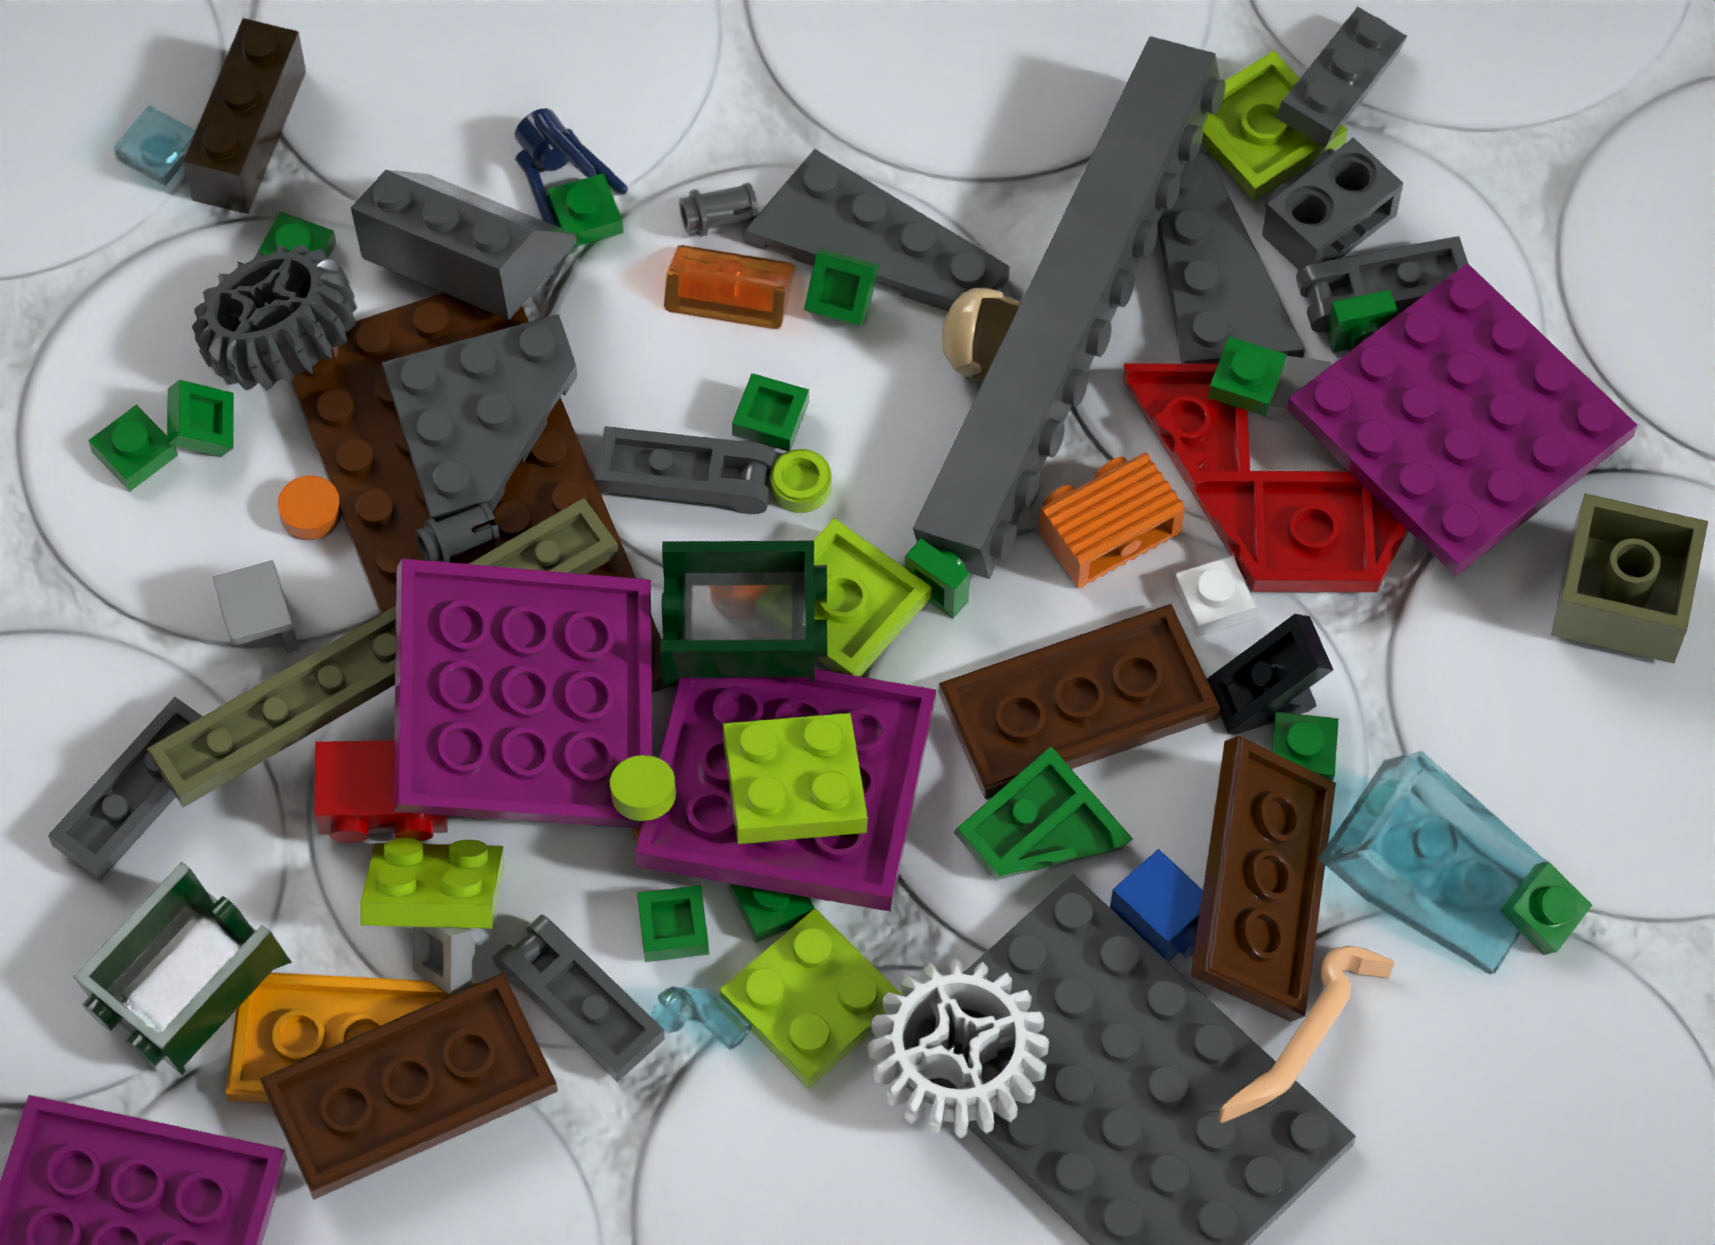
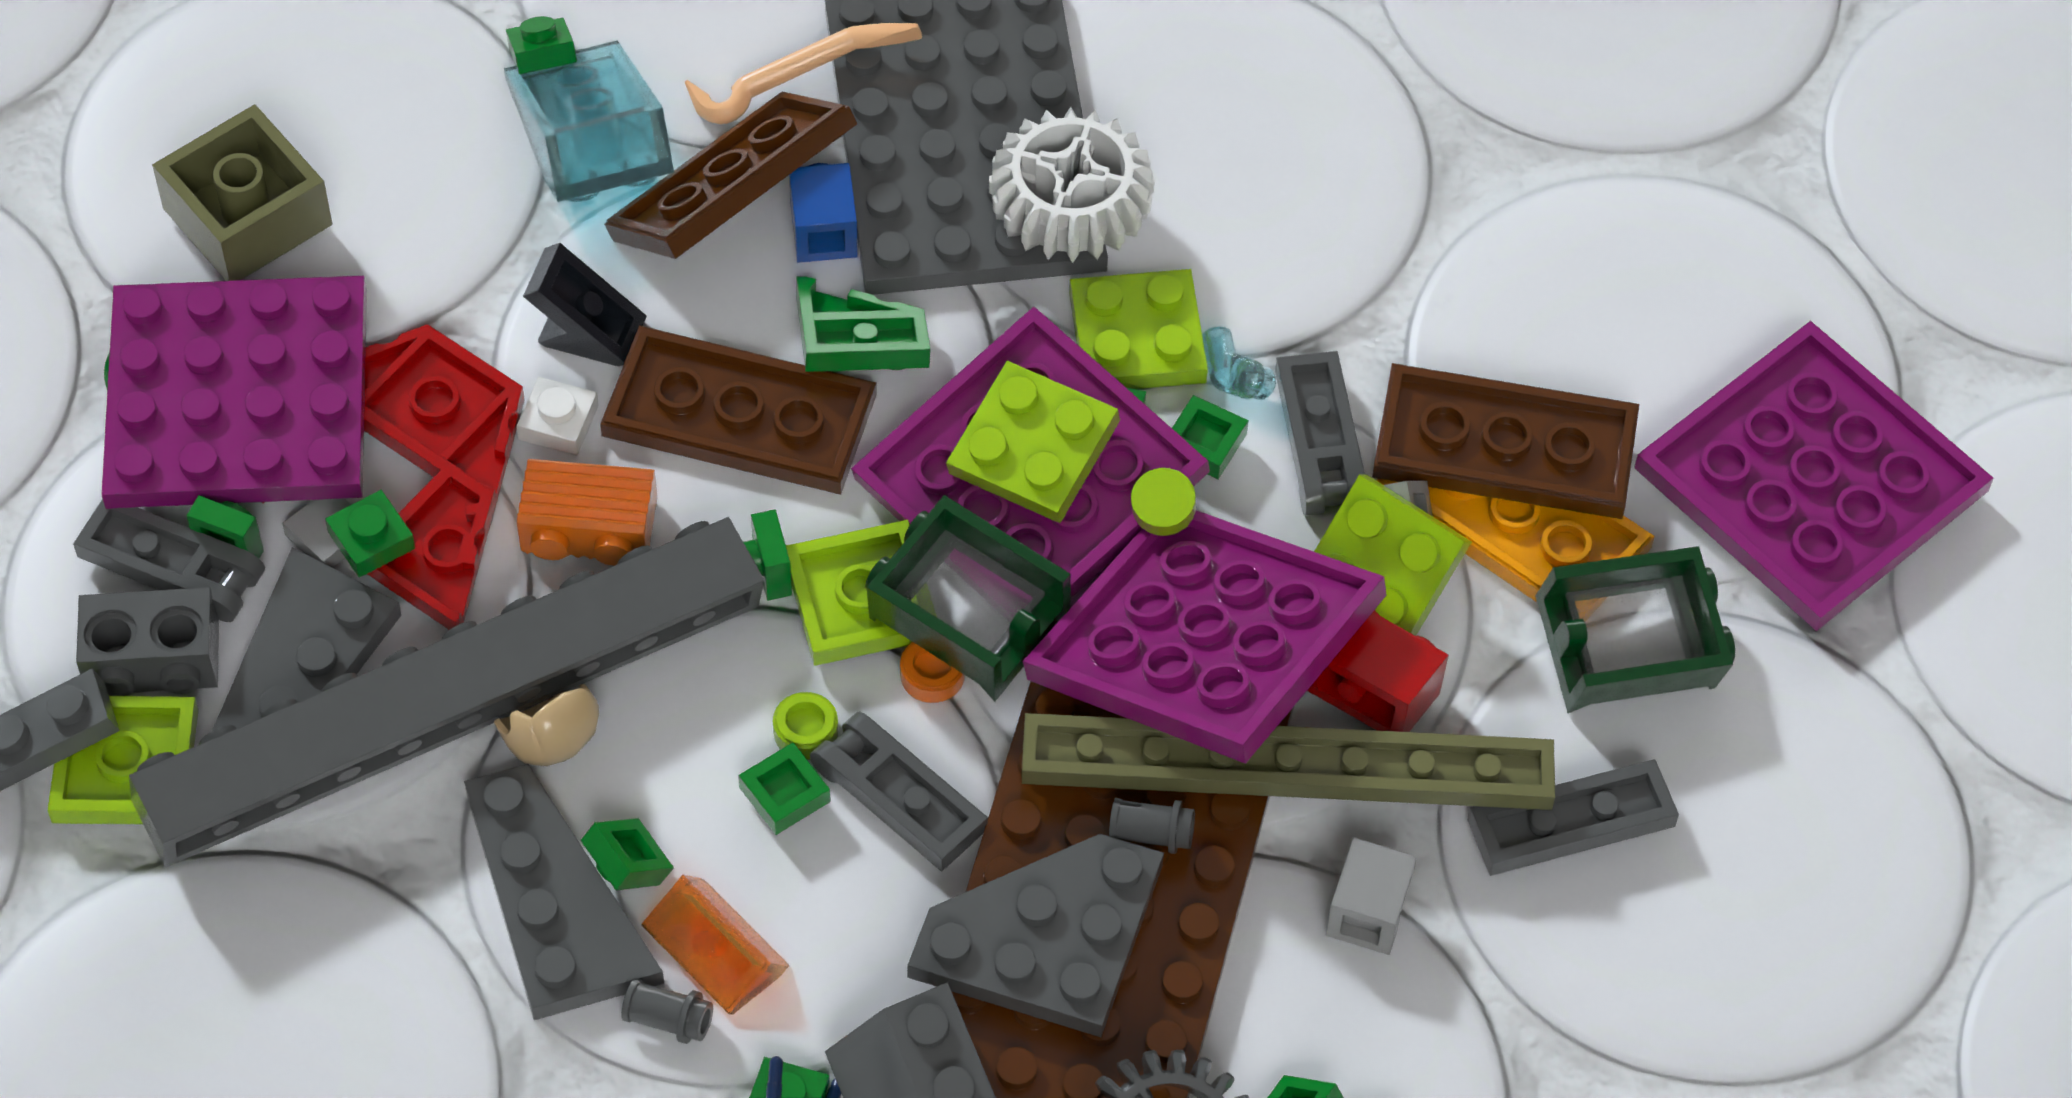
camera: 145 degrees left, 5 degrees down
(309, 507) = (1251, 979): orange tile -> none
(1307, 741) = (610, 258): green plate -> none

